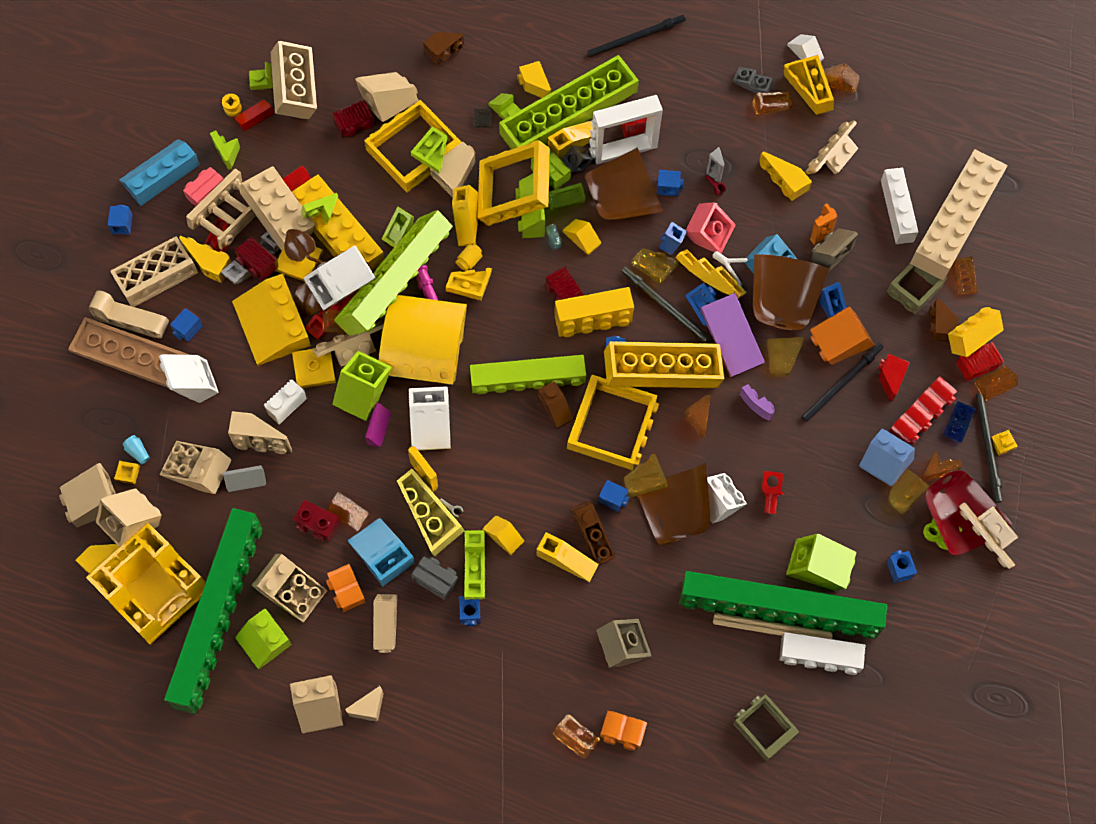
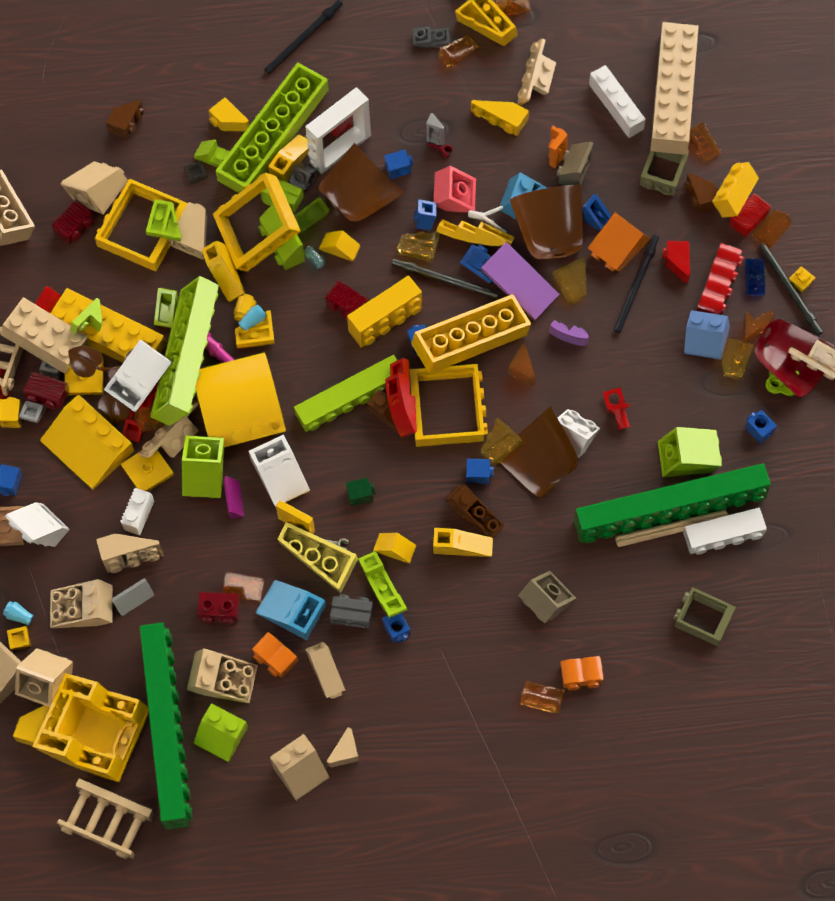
camera: 20 degrees left, 0 degrees up
(128, 655) = (105, 798): none -> tan fence
(471, 268) = (253, 317): none -> medium azure cone
(495, 469) = (360, 491): none -> dark green brick
(568, 400) = (400, 402): none -> red slope

